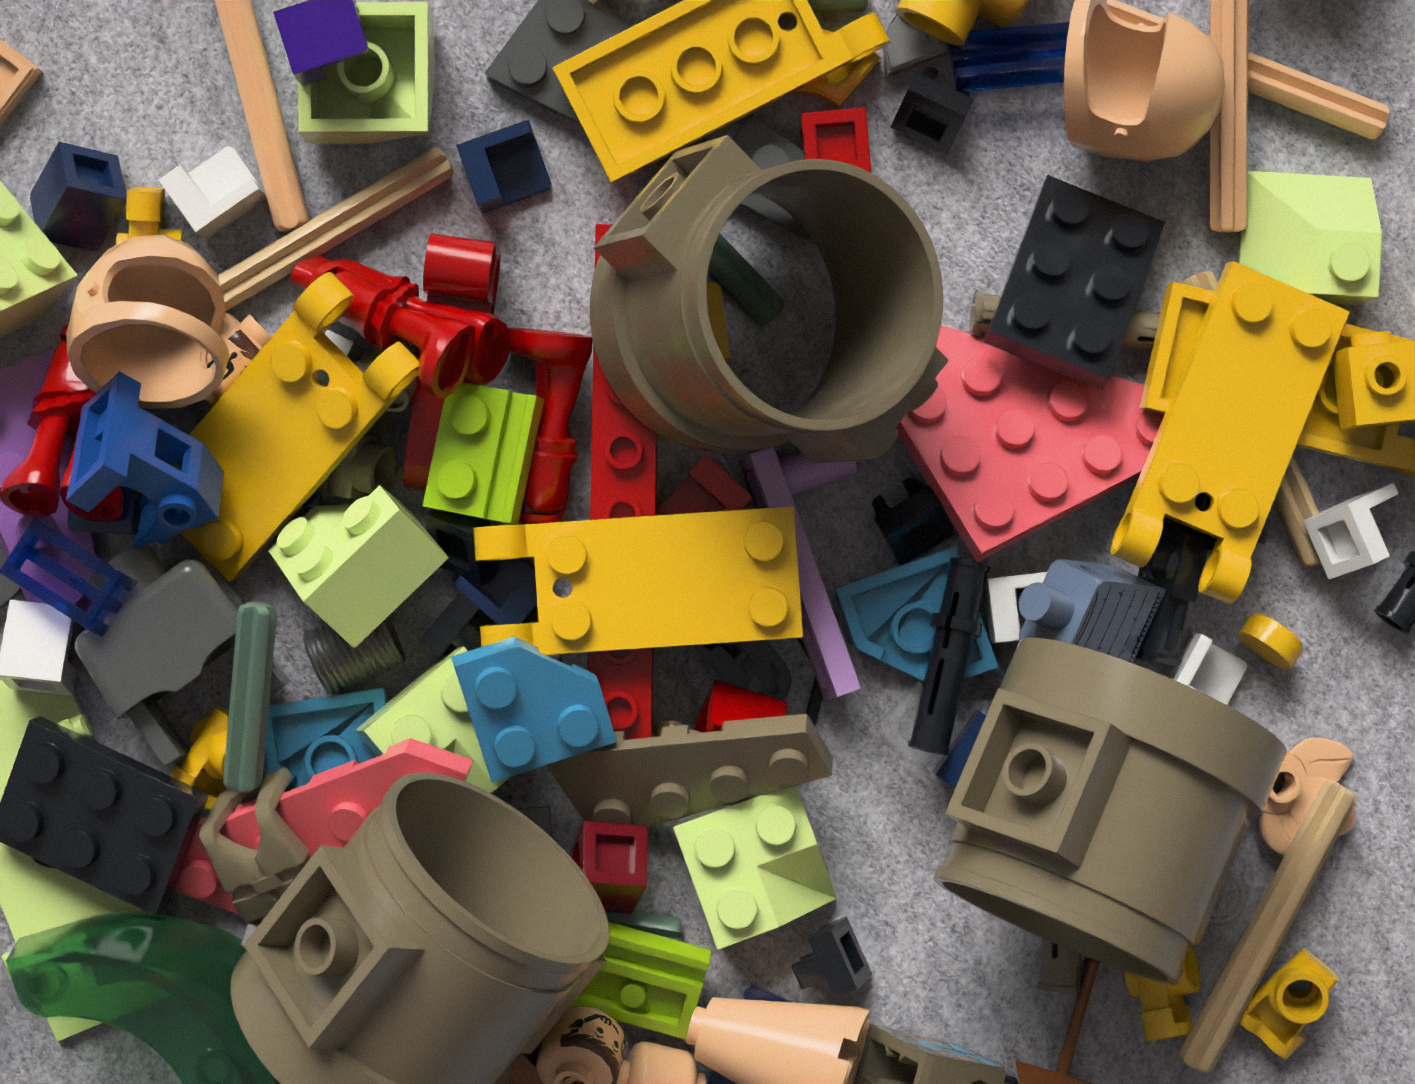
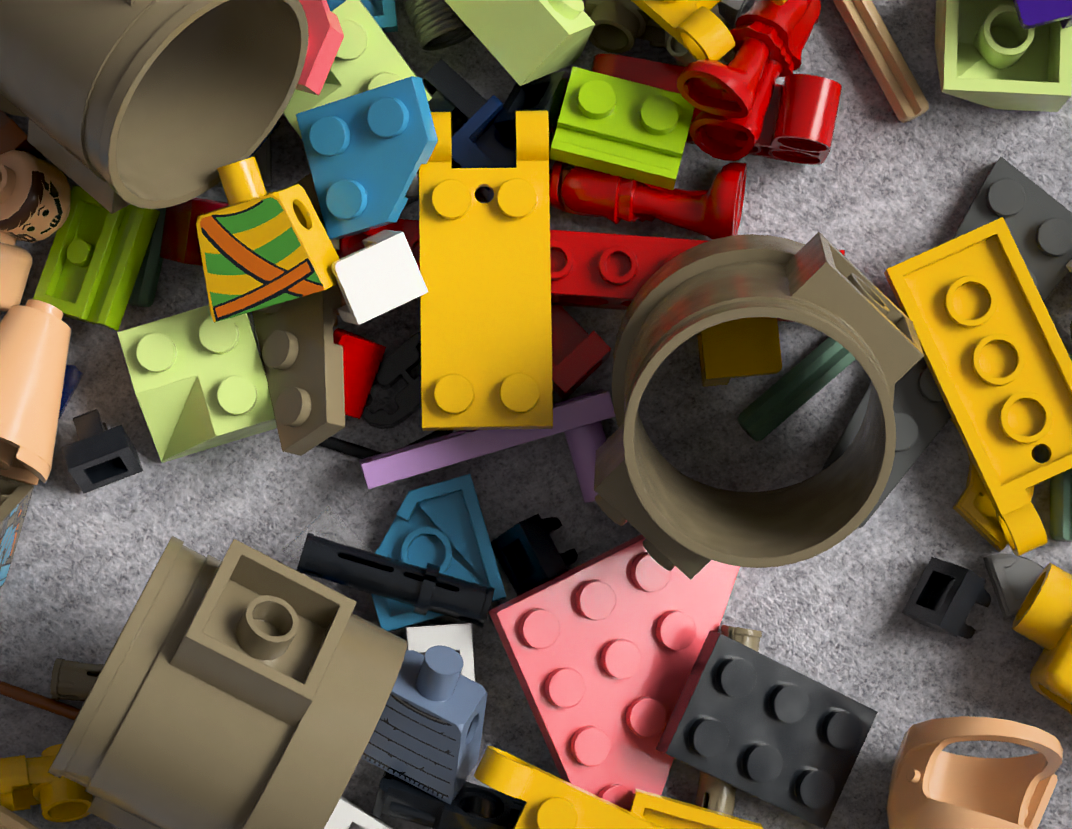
camera: 90 degrees right, 5 degrees down
(504, 166) = (906, 170): dark blue panel -> none
(632, 805) = (261, 245): none -> torso
(657, 688) = (378, 277): none -> white panel
(836, 136) = (916, 497): red panel -> none
(1010, 57) = (997, 676): clear blue tile -> none

